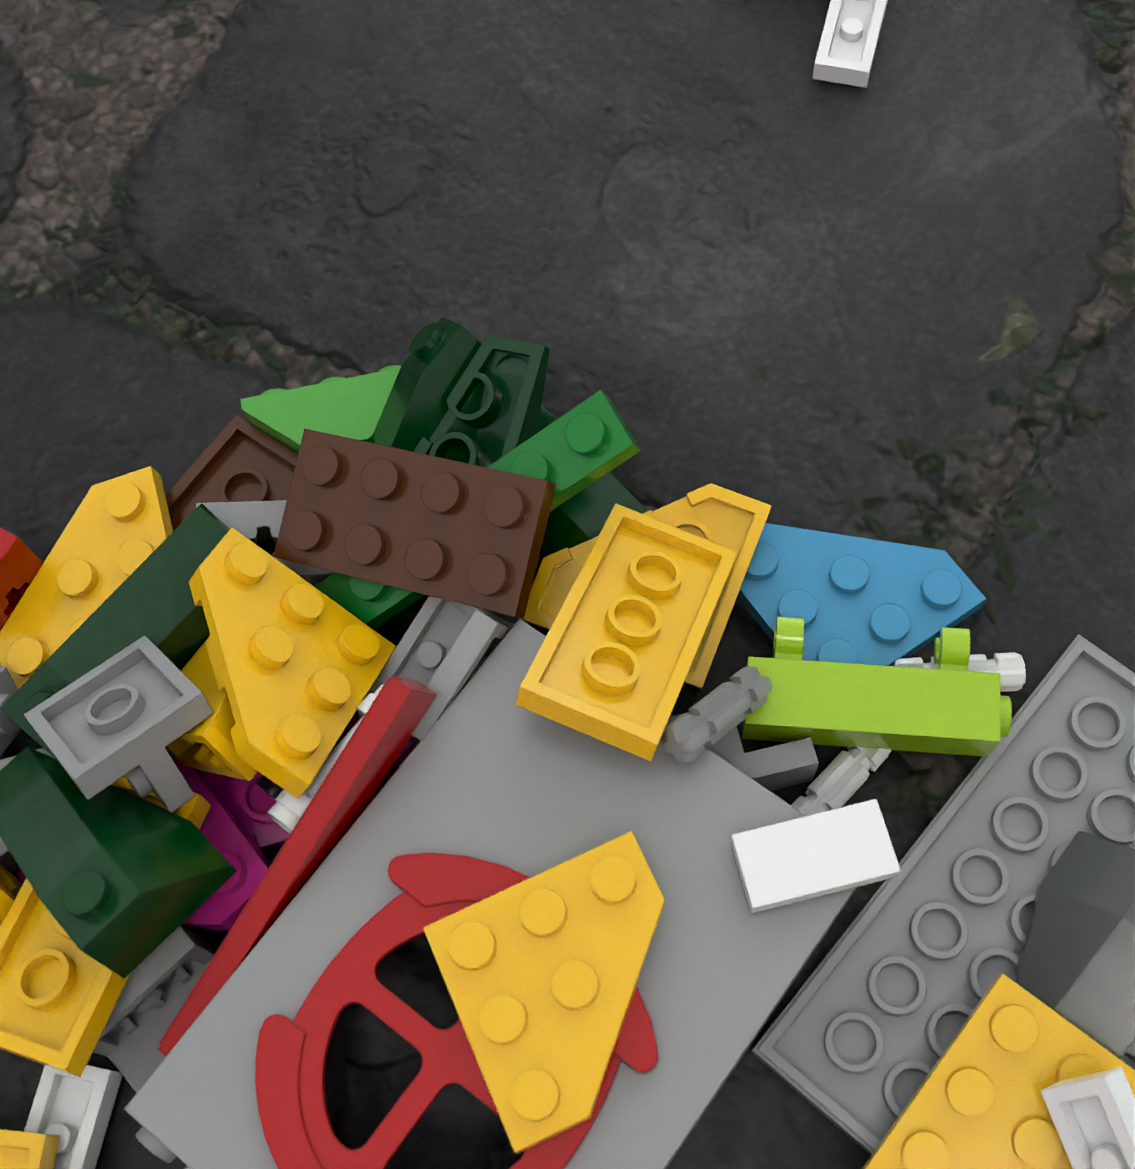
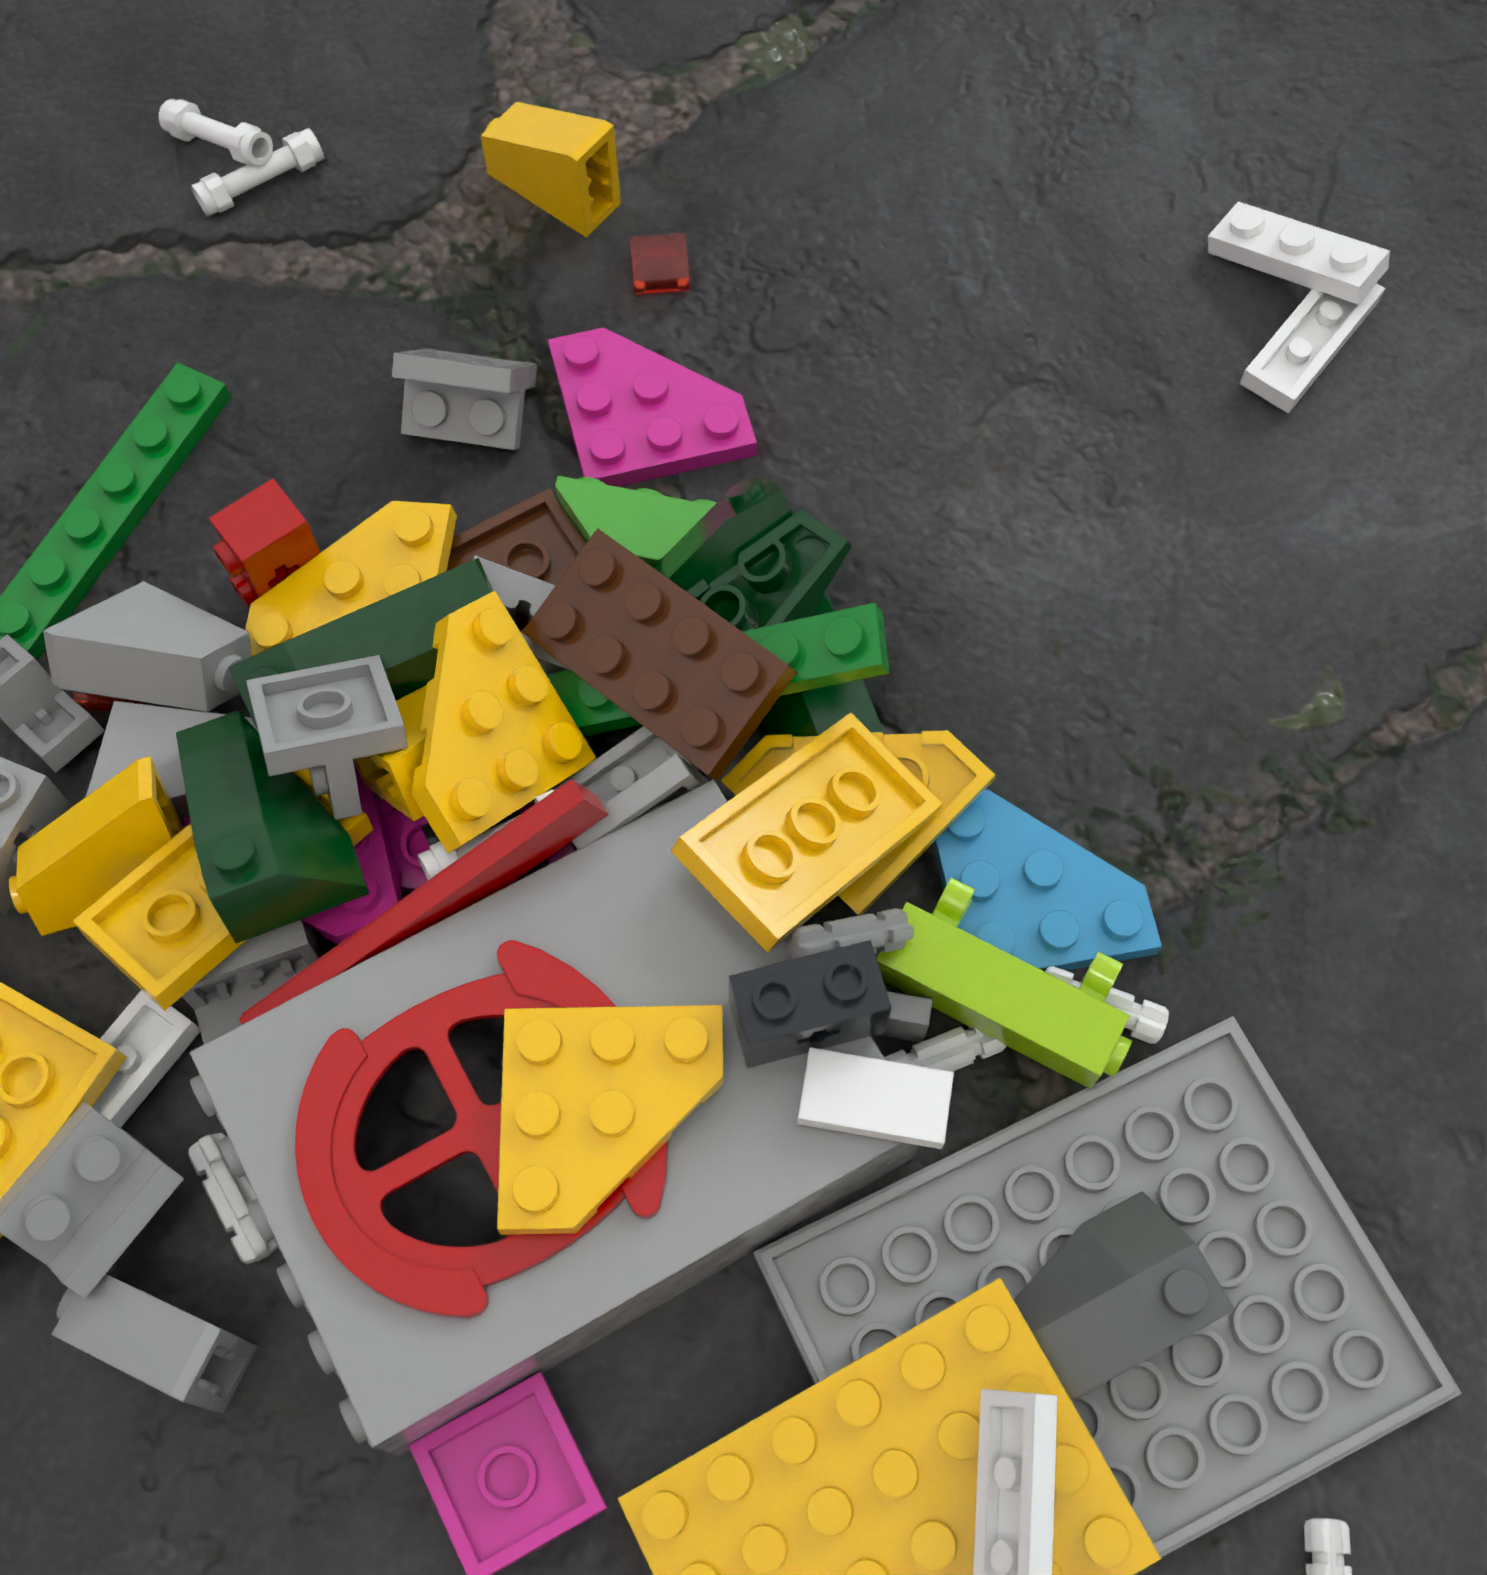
camera: 15 degrees right, 0 degrees up
(112, 119) = (556, 162): none -> yellow slope
(117, 364) = (463, 396): none -> light grey bracket
(247, 174) = (659, 263): none -> clear red tile
(292, 313) = (642, 413): none -> dark pink plate
(713, 793) = (809, 1003): none -> black brick

